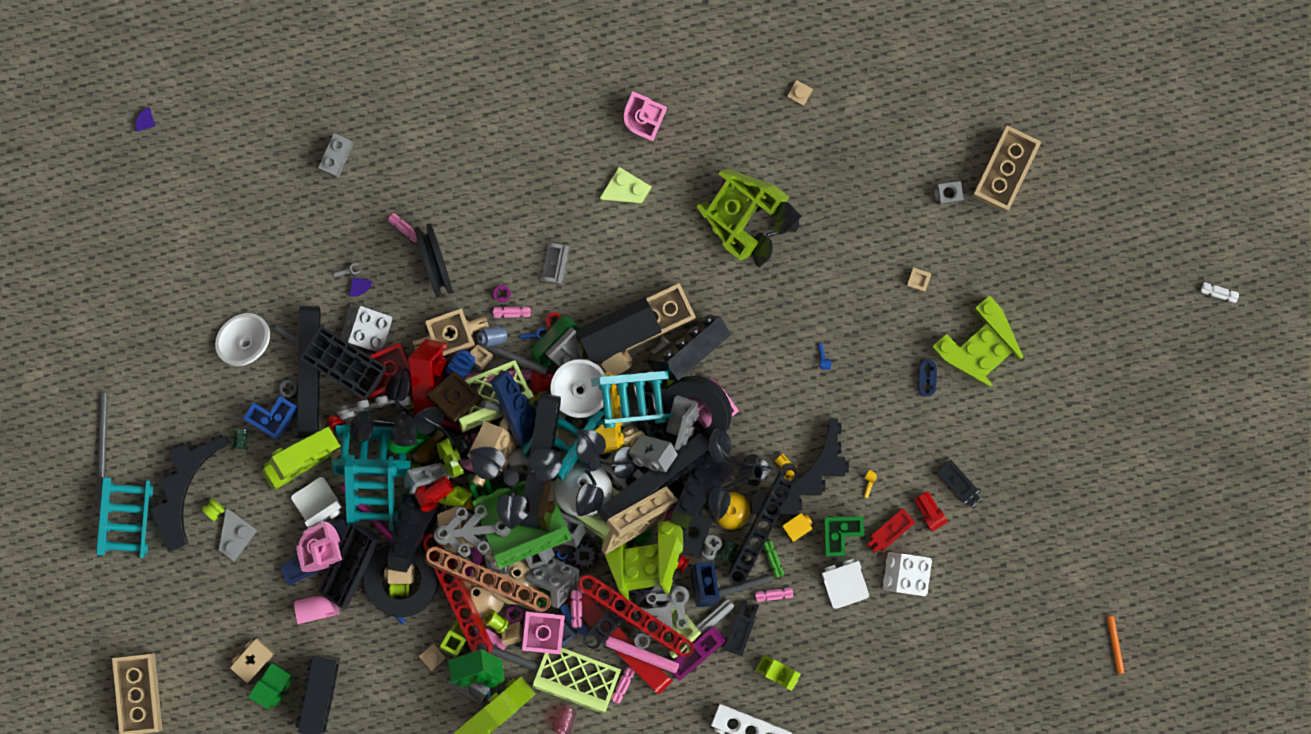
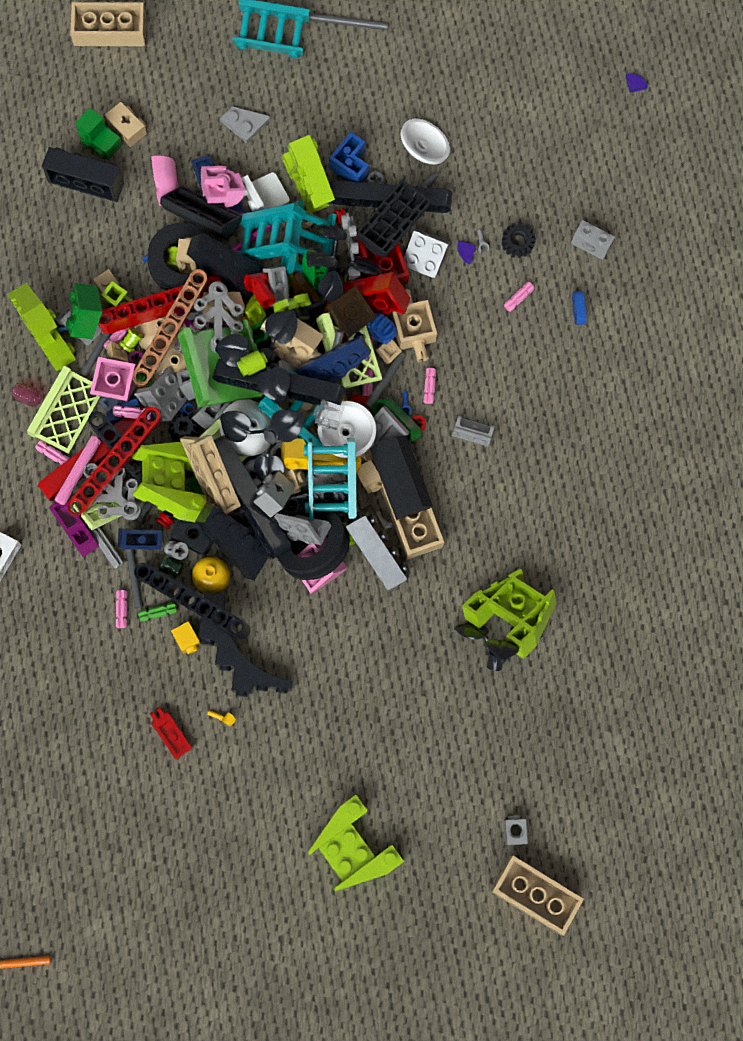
camera: 90 degrees right, 10 degrees down
(187, 462) = (271, 68): black arch -> none
(212, 509) = (270, 104): lime wheel -> none
(240, 439) = (326, 136): clear green bush -> none
(331, 233) = (522, 231): none -> black tyre
(412, 165) = (579, 307): none -> blue beam
(433, 260) = (485, 309): black tyre -> none
(492, 336) = (407, 363): sand blue brick -> none
(502, 300) = (446, 384): magenta bush -> none
(526, 488) = (252, 363): none -> lime brick
(546, 506) = (233, 383): dark brown plate -> none
(571, 407) = (328, 415): none -> clear brick
(626, 188) = (542, 505): yellowish green wing -> none
(643, 116) = (614, 527): bright pink brick -> none
(741, 630) = (90, 572): black hinge -> none
(752, 471) = (246, 599): black plant -> none
(778, 672) = (42, 603): lime brick -> none
(781, 460) = (254, 632): yellow pin -> none
(800, 93) = (628, 687): tan plate -> none
(825, 364) = (350, 683): blue hand -> none
(835, 531) = (178, 678): green brick -> none
(845, 583) = (122, 681): white bracket -> none
(907, 574) = (123, 746): white bracket -> none
(918, 279) = (427, 790): tan plate -> none
(932, 378) = (322, 793): dark blue beam -> none
(932, 514) = (183, 777): red piece -> none
(959, 483) = (210, 810): black hinge -> none

